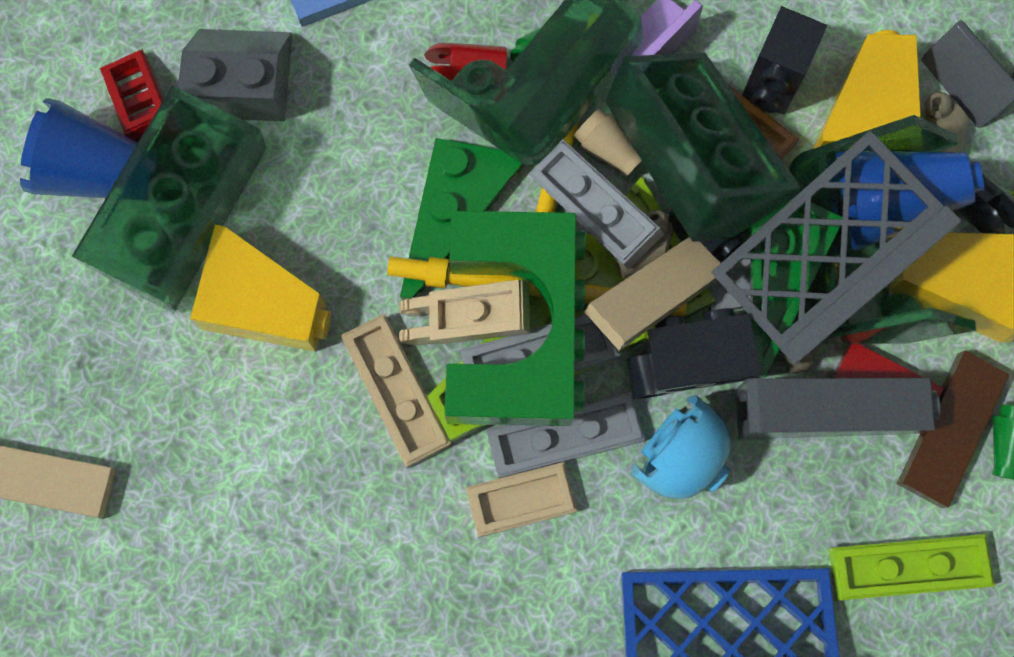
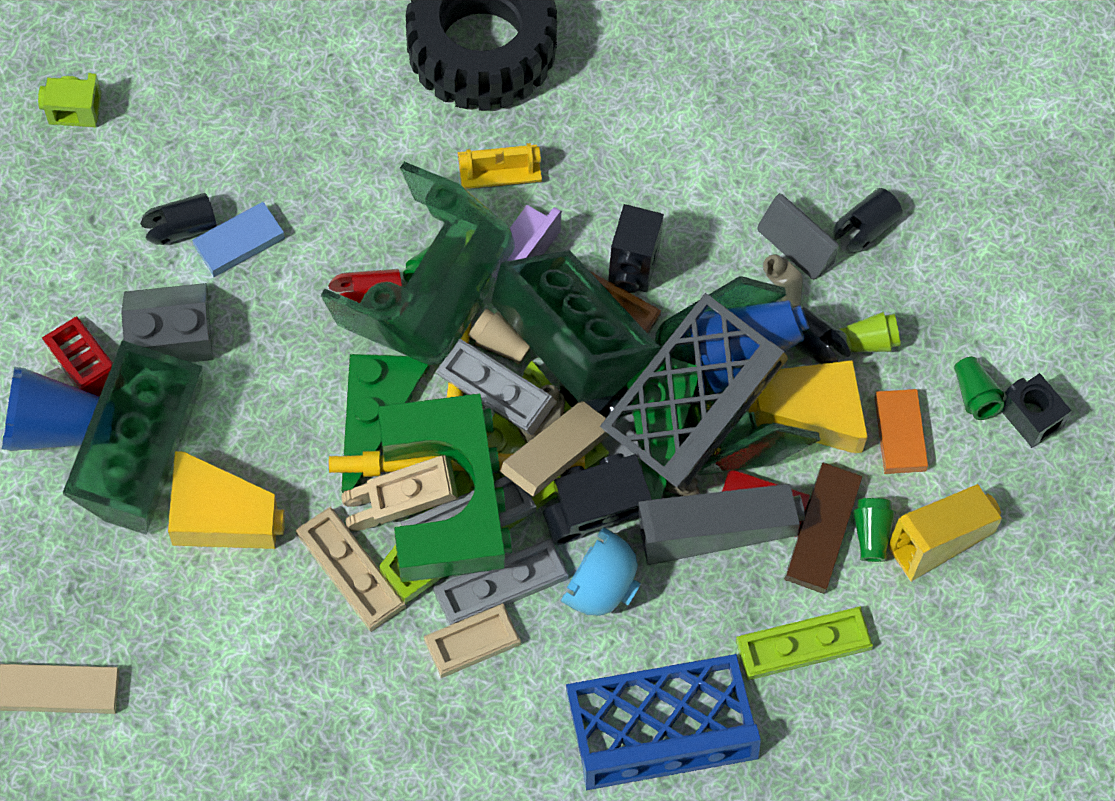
camera: 15 degrees left, 10 degrees down
(877, 87) = (718, 256): yellow slope -> none

